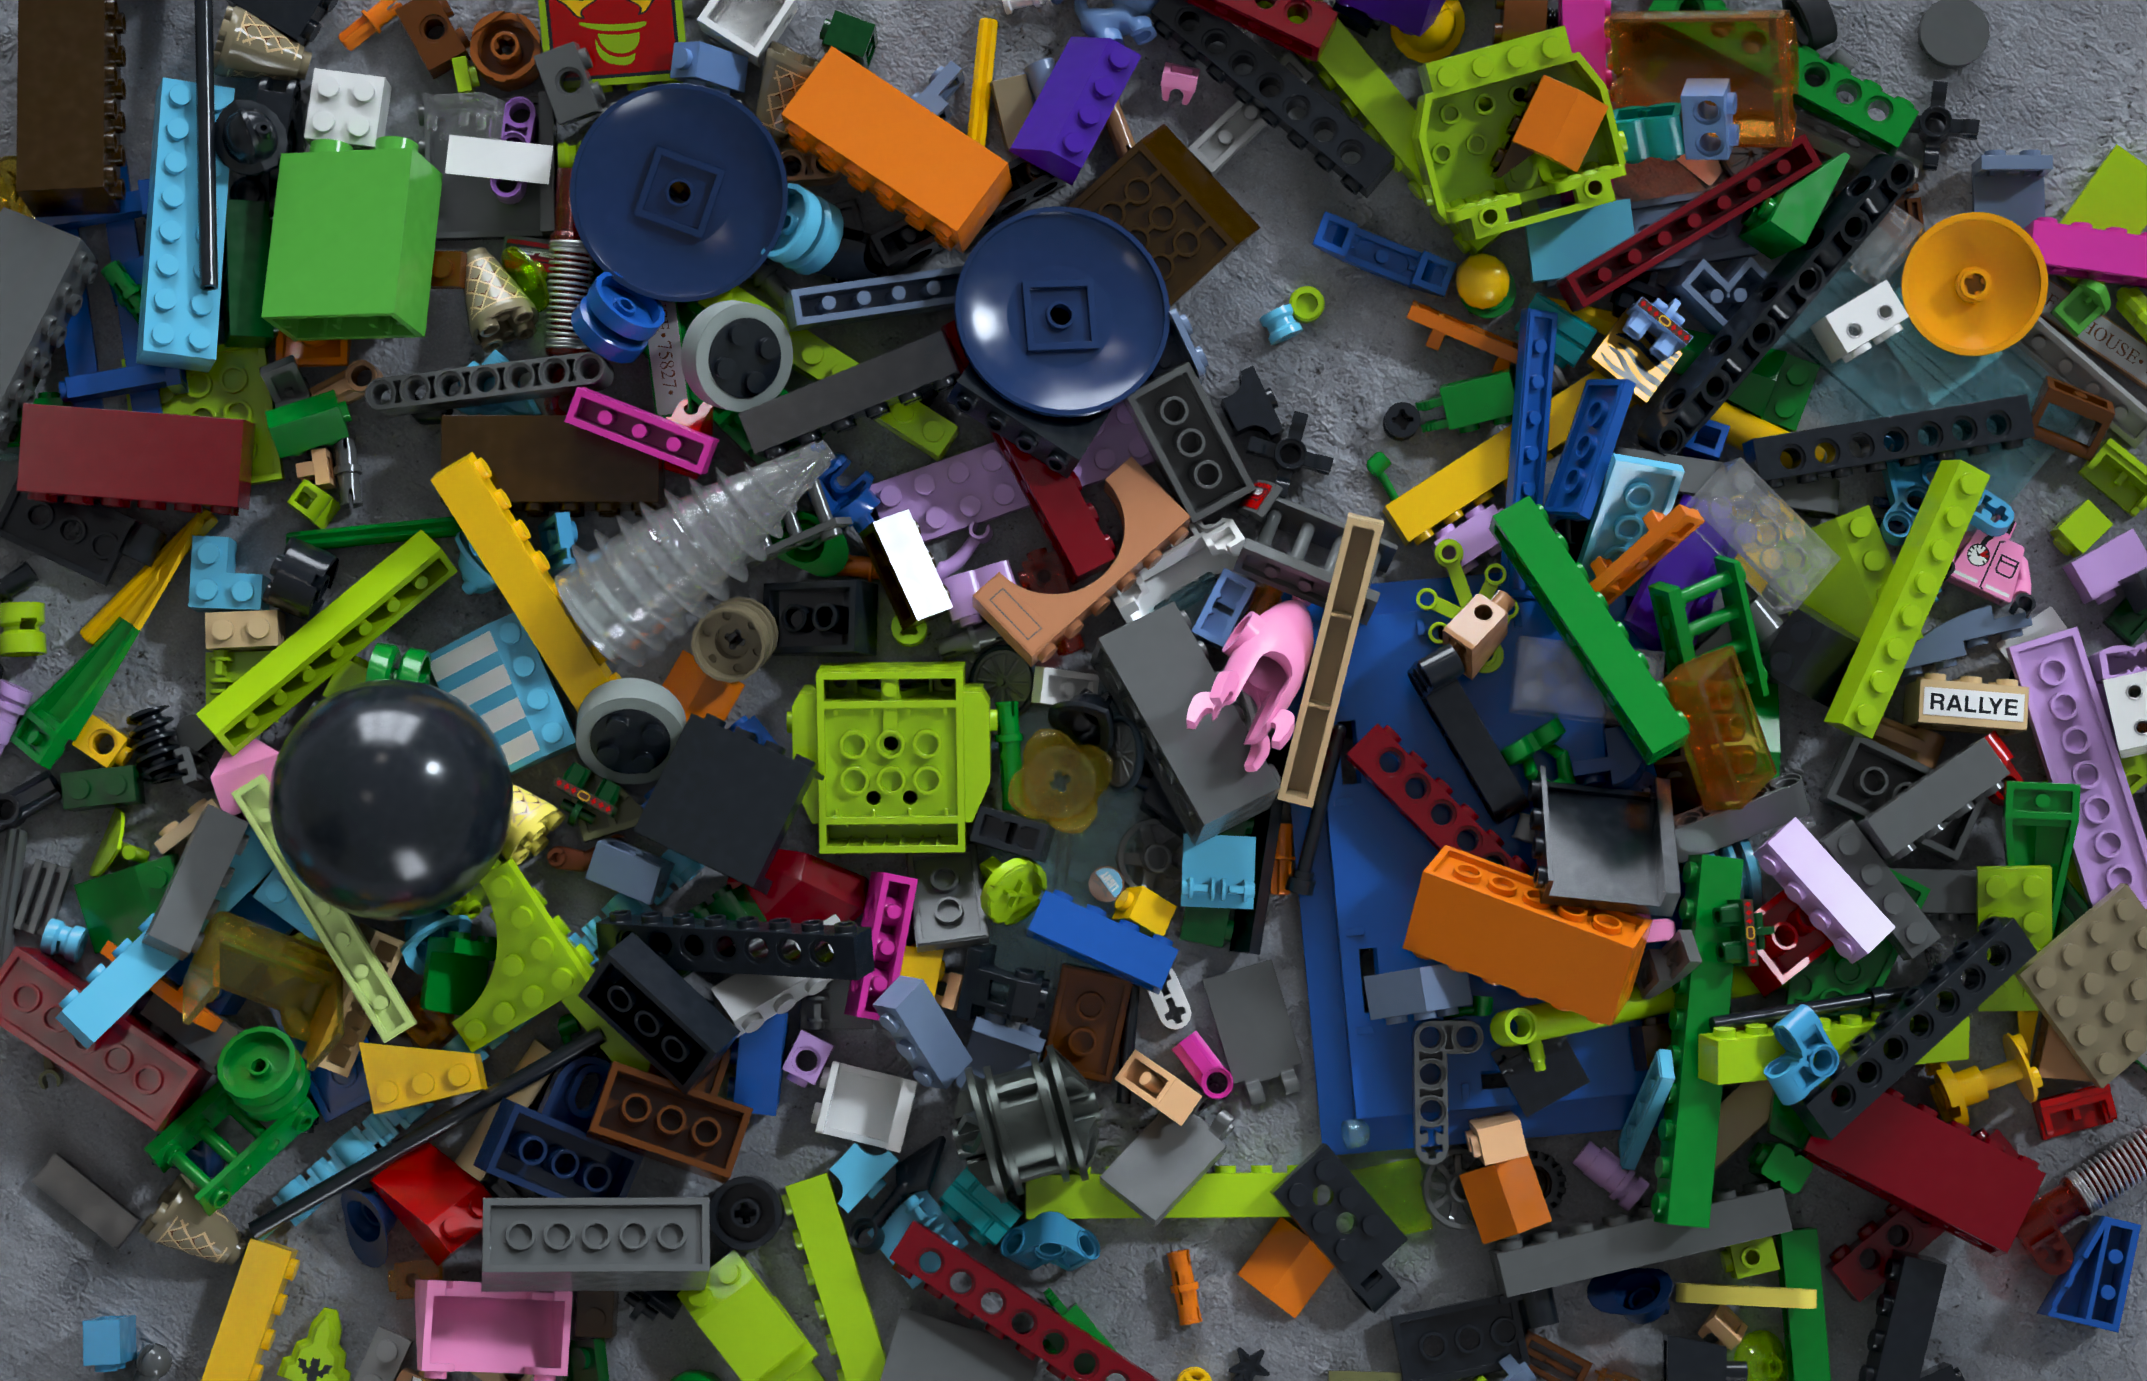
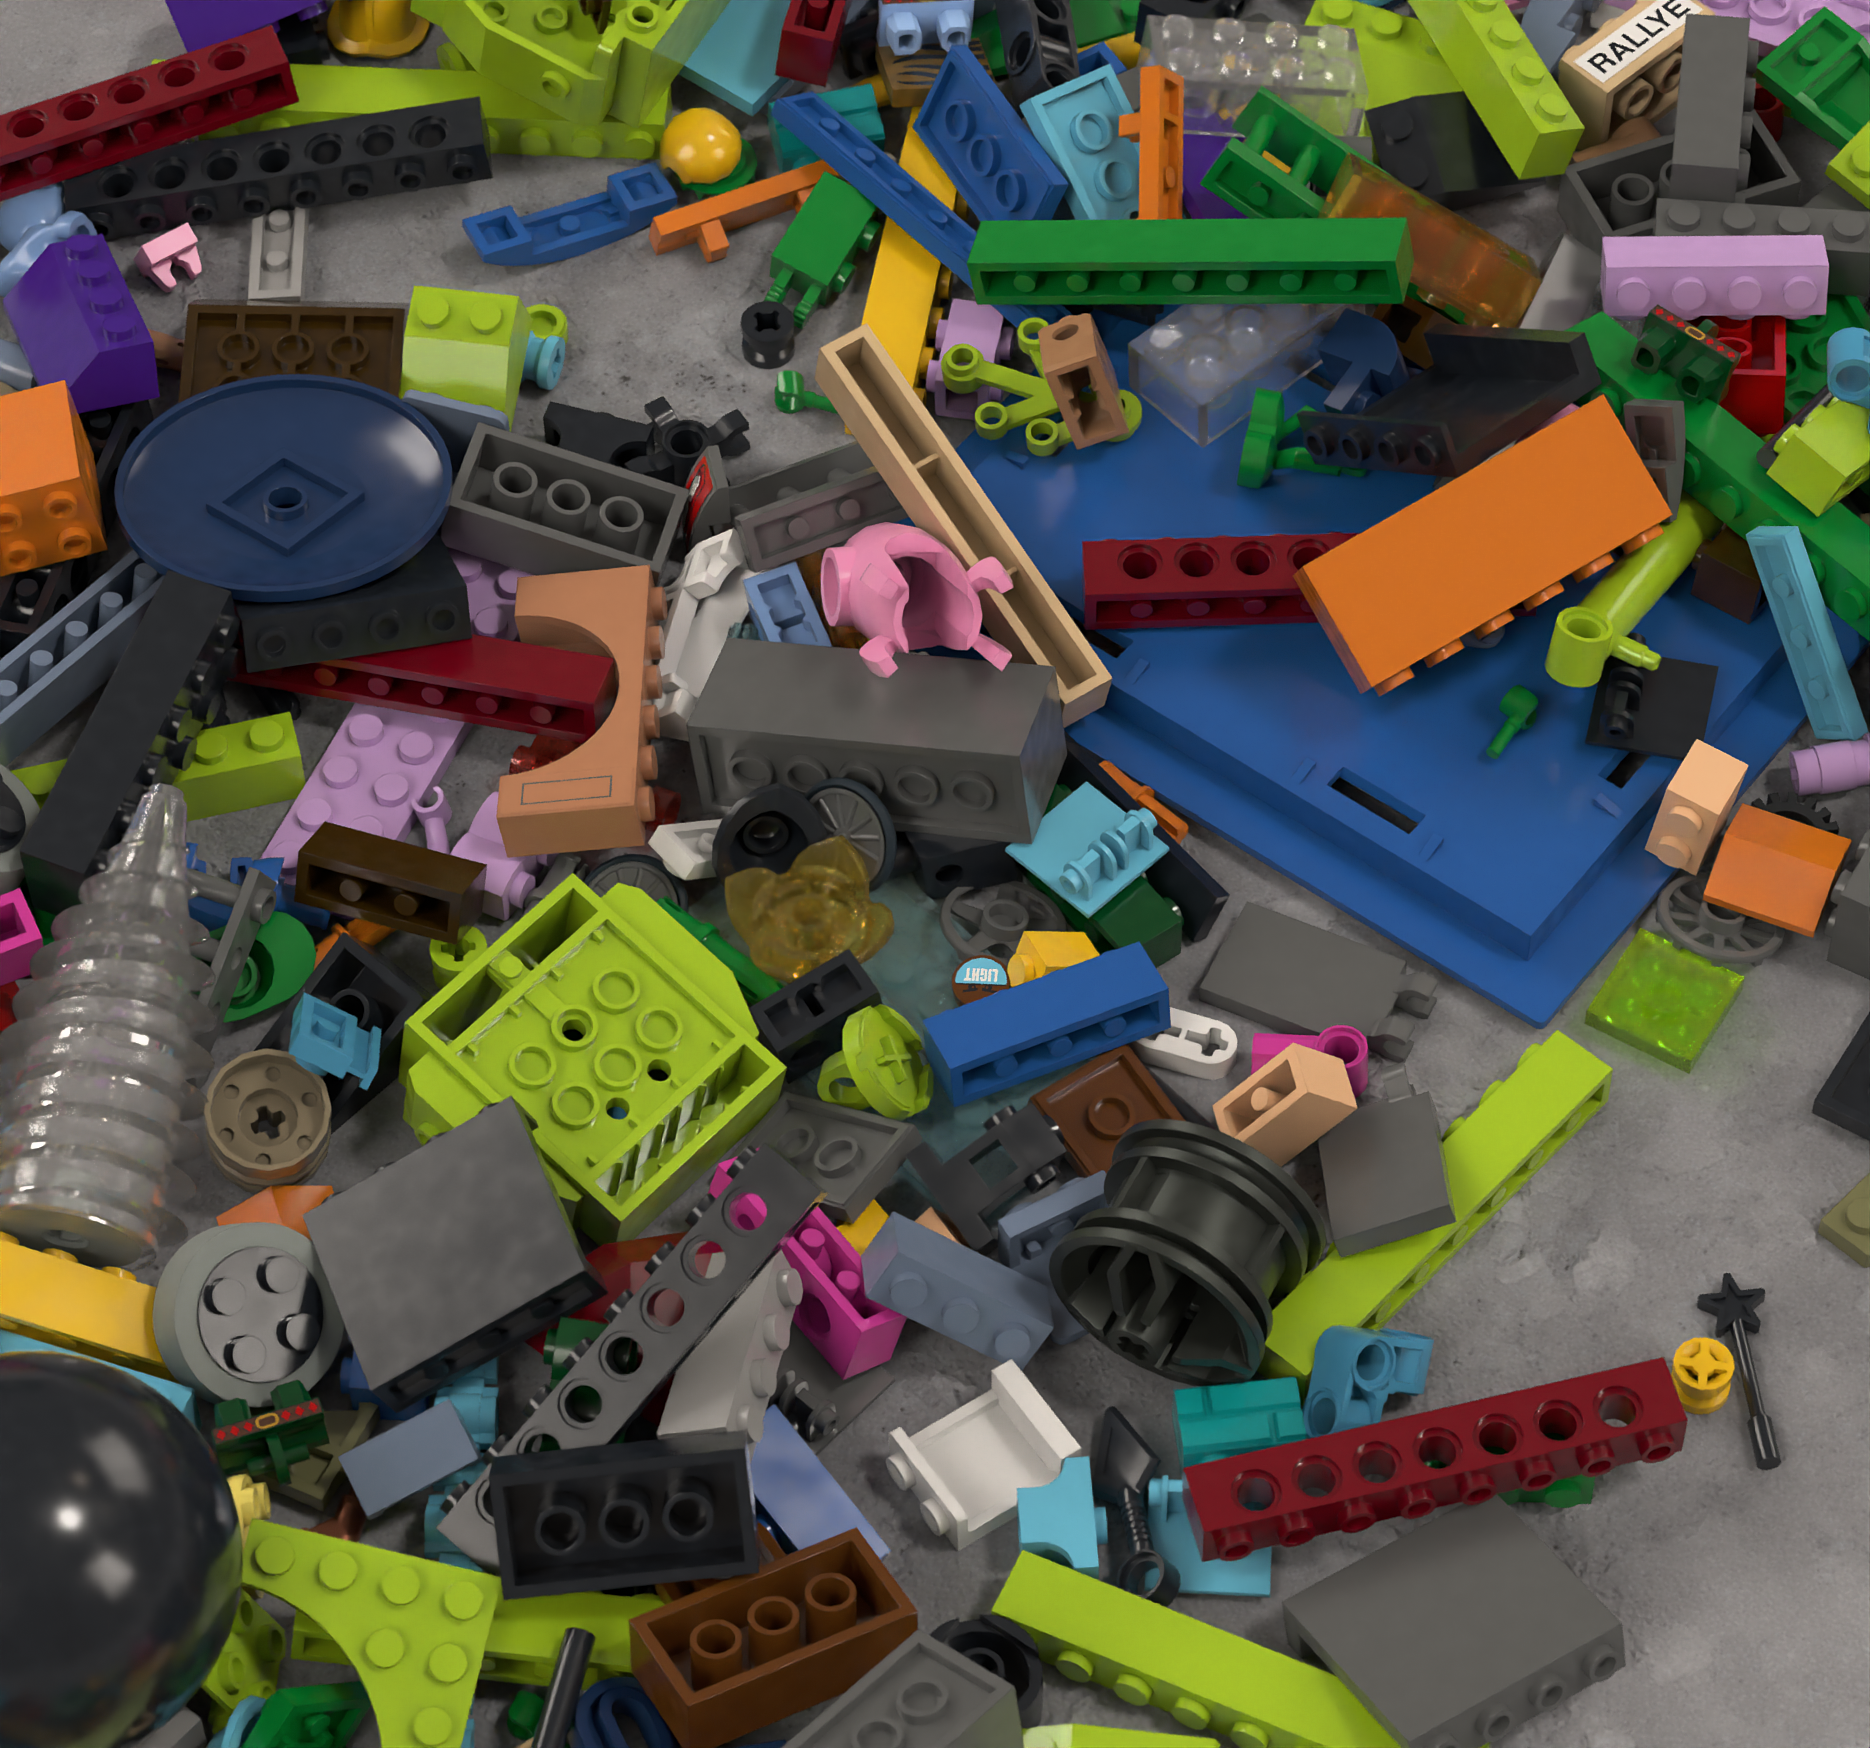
camera: 40 degrees left, 30 degrees down
(788, 641) = (331, 1042): none -> dark azure plate
(822, 1050) = (859, 1447): lavender brick -> none
(1184, 1287) = (1599, 1309): orange pin -> none
(1231, 305) = (466, 346): none -> lime slope
(1286, 1267) = (1644, 1170): orange slope -> none
(1301, 879) = (1184, 787): black piece -> none
(1354, 1253) = (1695, 1060): black hinge -> none
(1355, 1133) = (1551, 968): clear light blue hinge -> none
(1417, 993) = (1433, 732): sand blue brick -> none
(1437, 1090) = (1625, 865): dark grey beam -> none
(1465, 734) = (1169, 486): black beam -> none
(1522, 829) = (1355, 509): dark grey axle -> none

